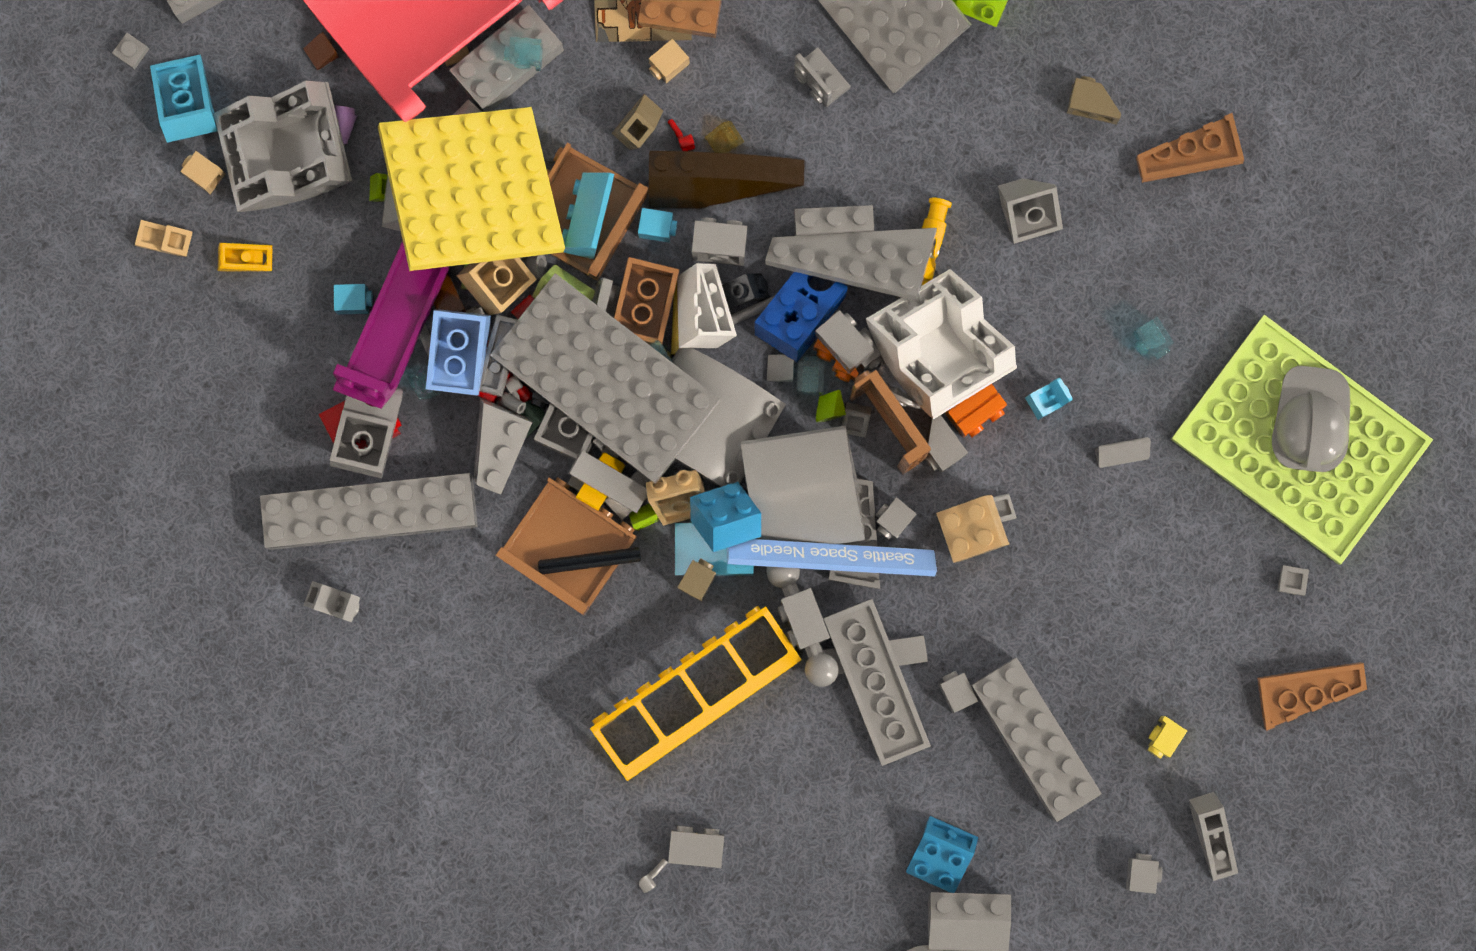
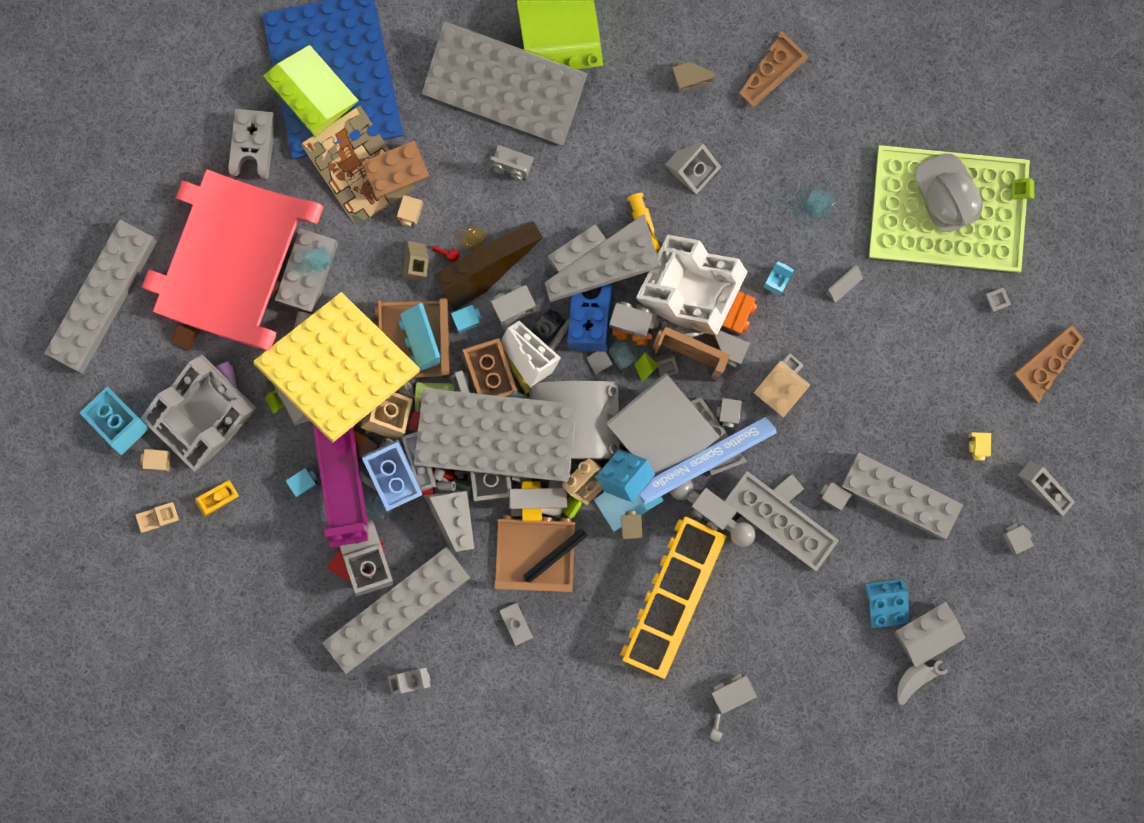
camera: 35 degrees left, 0 degrees up
(130, 51) = (60, 411): light grey plate -> none
(496, 612) = (516, 624): none -> light grey plate
(1403, 468) = (1022, 188): none -> lime slope

